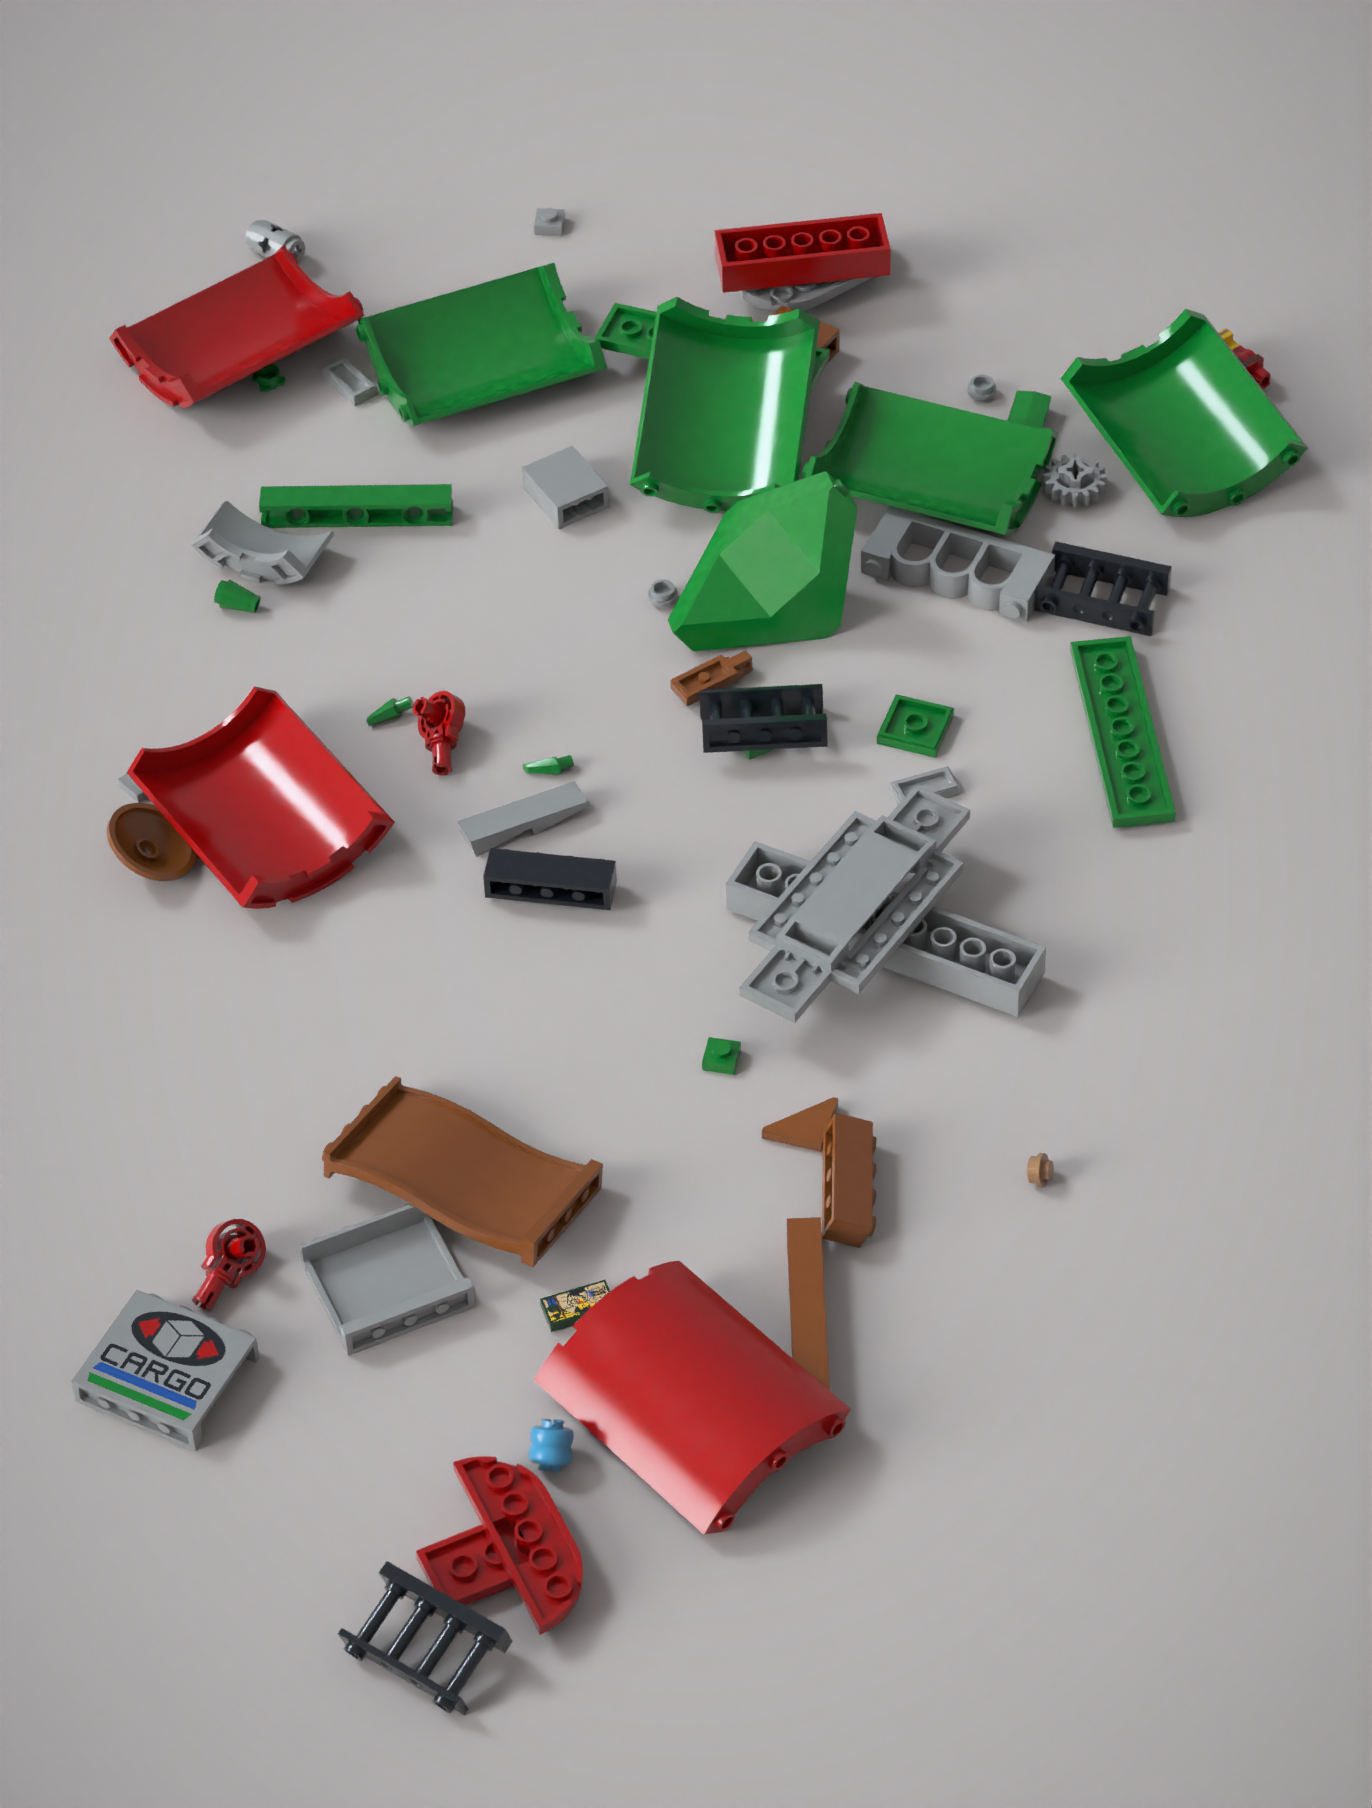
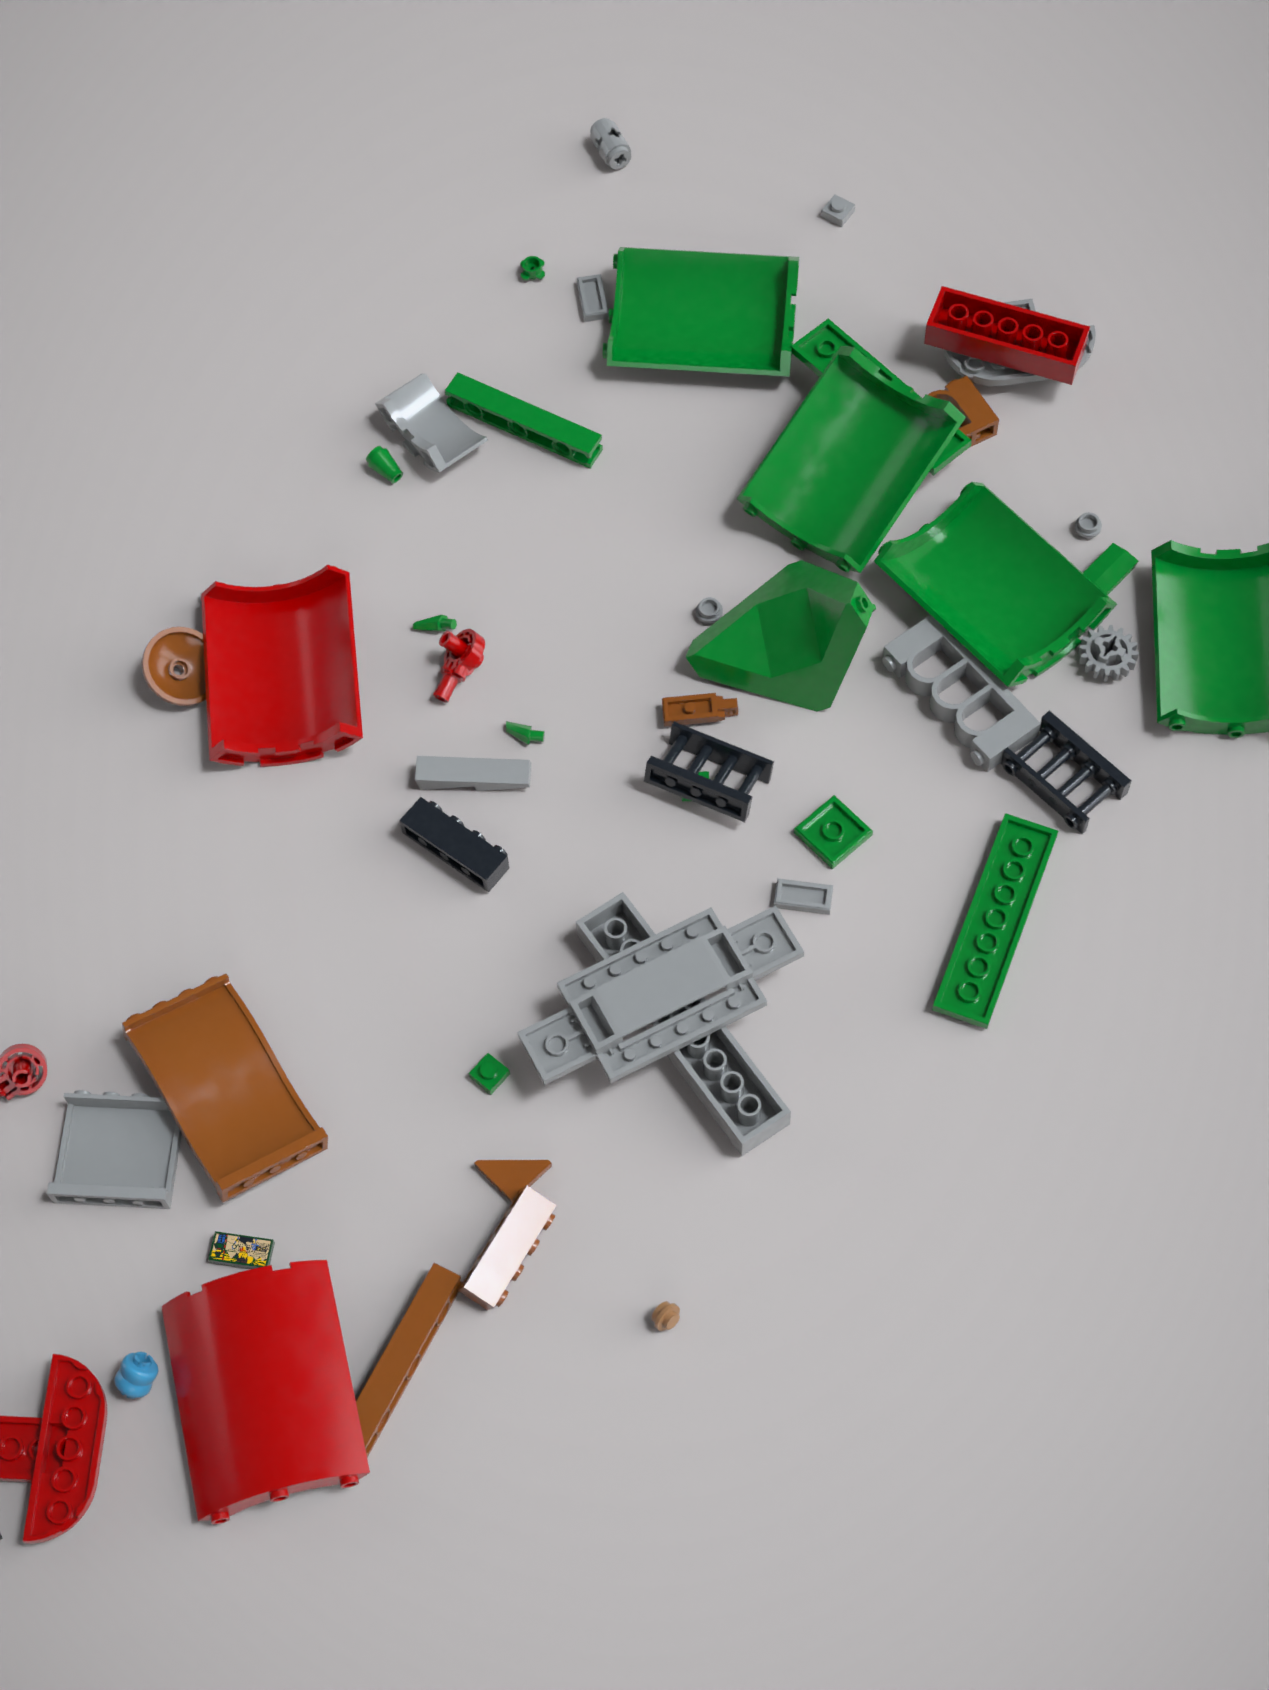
camera: 30 degrees right, 15 degrees up
(232, 330) = (528, 214): red panel -> none
(565, 487) = (693, 474): light grey brick -> none

